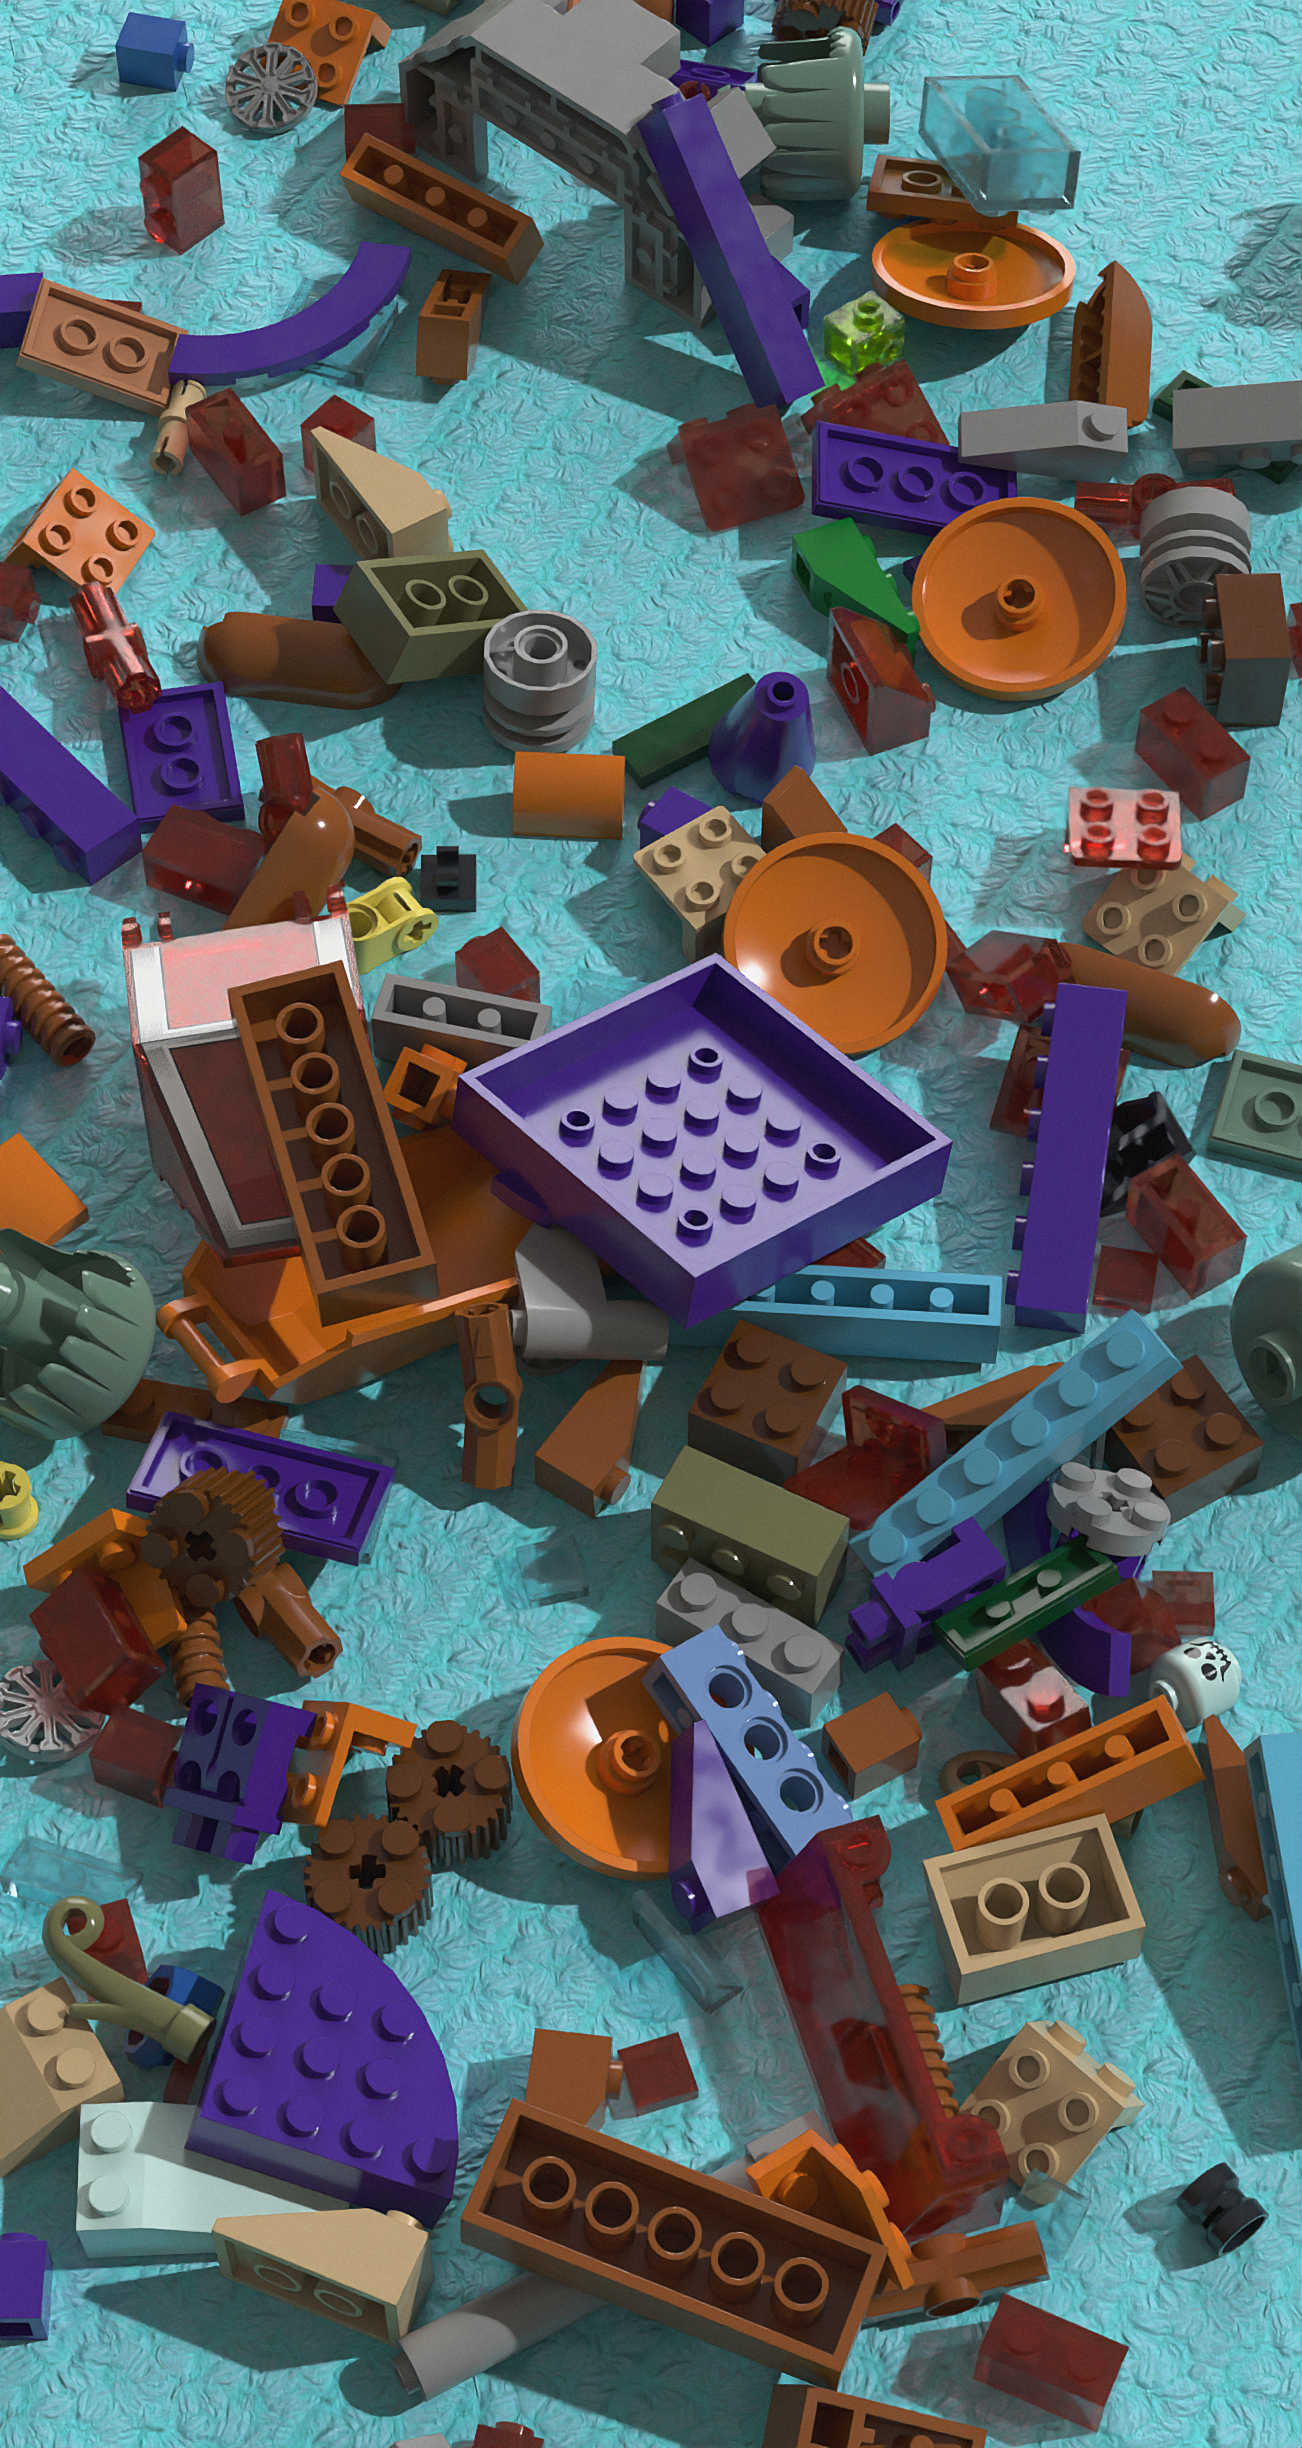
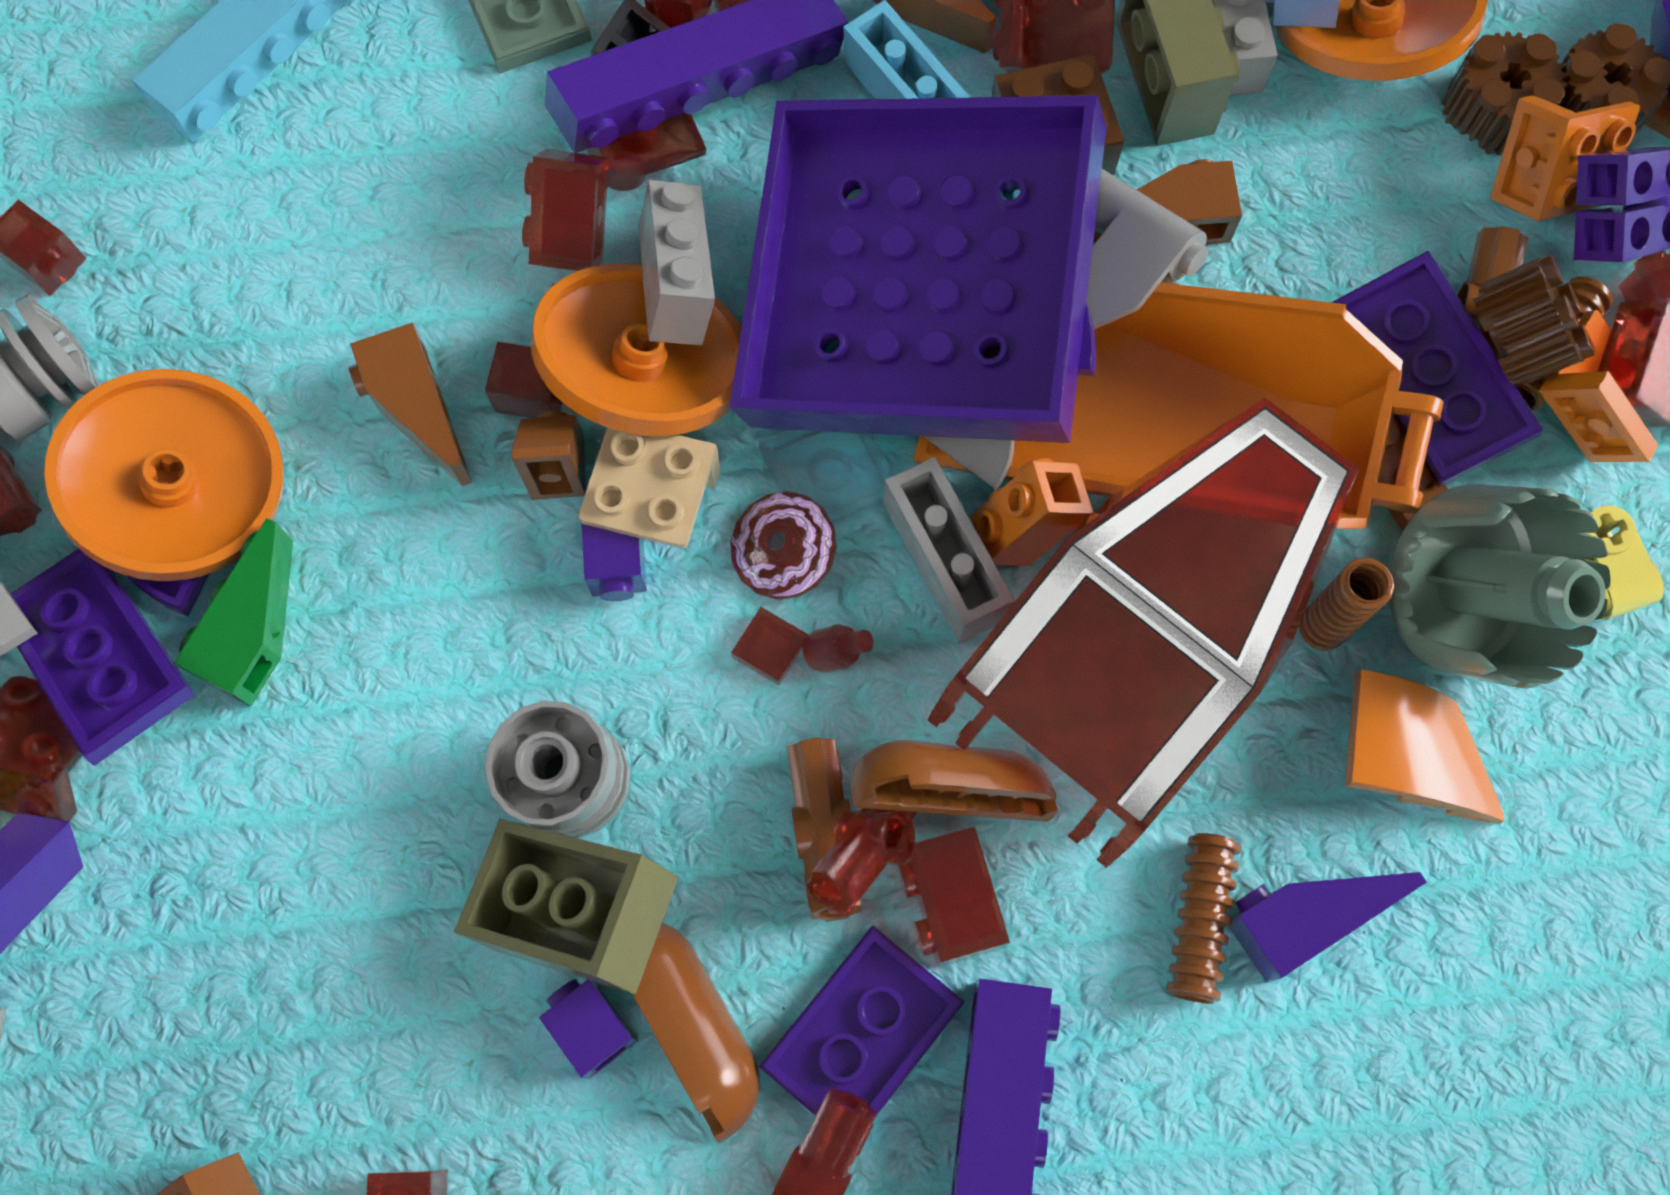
camera: 130 degrees left, 15 degrees up
(143, 1225) = (1346, 604): none -> dark orange piece
(333, 1143) = (1223, 435): dark orange brick -> none
(378, 502) = (473, 1064): tan slope -> none
(388, 923) = (889, 707): light yellow piece -> none
(449, 881) = (802, 702): black tile -> none
(464, 918) = (835, 647): none -> clear red cylinder
(488, 1361) = (1241, 258): dark orange piece -> none
(497, 967) = (866, 580): clear red brick -> none
(512, 892) = (769, 646): none -> clear red tile
(552, 1571) = (1285, 175): clear light blue tile -> none
(568, 795) = (648, 668): orange brick -> none
(583, 951) = (802, 559): none -> dish
(678, 736) = (492, 638): dark green tile -> none
(738, 466) = (164, 827): clear red bracket -> none
(763, 737) = (473, 548): dark purple cone -> none
(876, 682) = (344, 518): clear red slope -> none
(888, 1011) = (675, 263): none -> light grey brick
(945, 791) = (405, 390): none -> dark orange slope
(1123, 828) = (366, 225): clear red bracket -> none
(1160, 915) = (409, 178): tan bracket -> none
(1164, 1014) = (513, 129): dark orange brick -> none
(1192, 753) = (235, 254): clear red brick -> none
(1245, 649) = (100, 267): brick -> none

